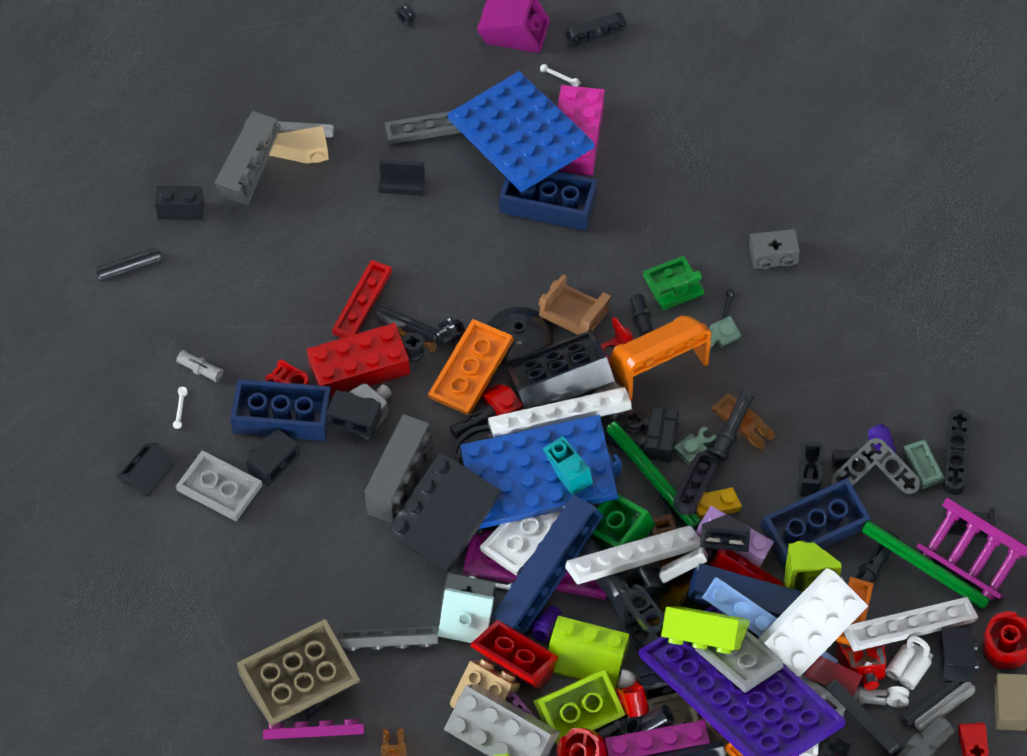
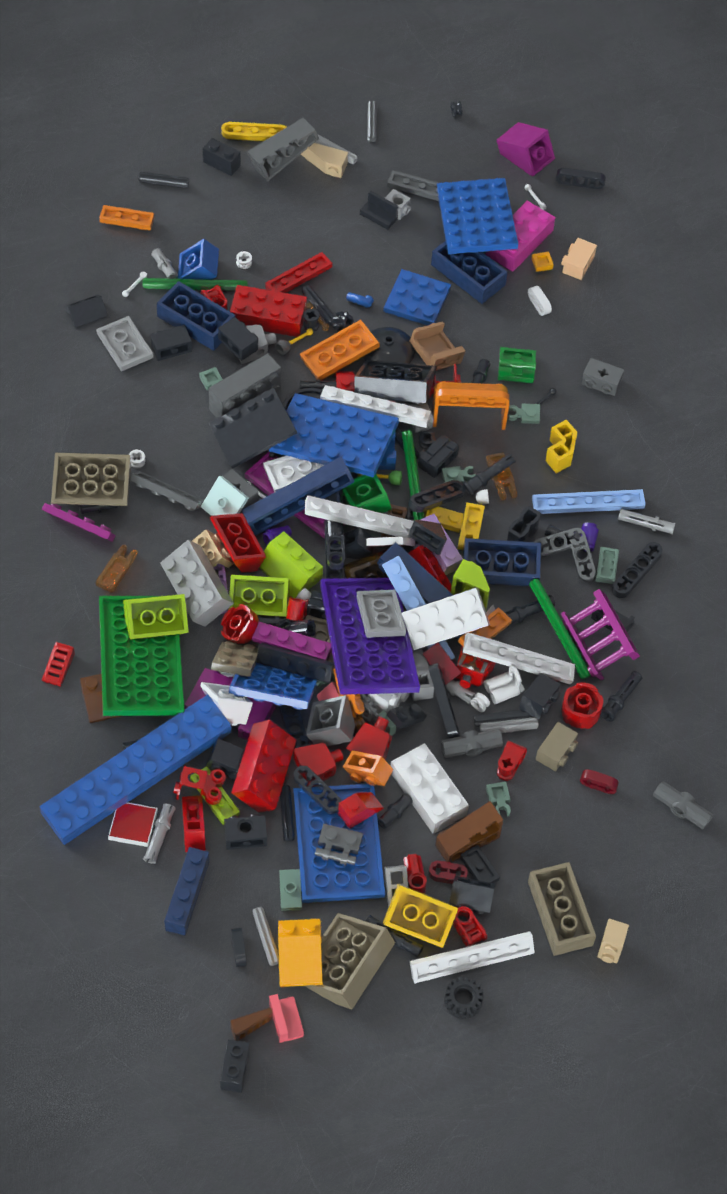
camera: 25 degrees right, 0 degrees up
(117, 331) = (126, 217): none -> orange plate
(195, 153) = (250, 131): none -> yellow plate
(239, 345) = (199, 261): none -> blue slope
(249, 372) = (195, 284): none -> green axle
(284, 320) = (244, 264): none -> white bush
(320, 75) = (372, 121): none -> dark grey axle
(321, 613) = (137, 454): none -> white bush
(350, 477) = (210, 377): none -> sand green plate
(403, 395) = (284, 346): none -> dark grey hinge
(418, 154) = (401, 200): none -> light grey brick
(455, 294) = (360, 300): none -> blue arm
(511, 260) = (417, 297): none -> blue plate
(568, 466) = (350, 437): teal slope -> none
(619, 147) = (542, 261): none -> light orange plate
(630, 485) = (394, 477): none -> bright green hinge
(647, 194) = (539, 300): none -> white beam
(657, 124) = (579, 258): none -> light nougat brick
(704, 629) = (367, 583): slope -> none
(740, 456) = (482, 497): none -> white hinge
(749, 495) = (471, 523): none -> yellow plate
(786, 344) = (560, 454): none -> yellow brick
(855, 401) = (589, 501): none -> light blue plate
(956, 385) = (624, 515): none -> light grey pin

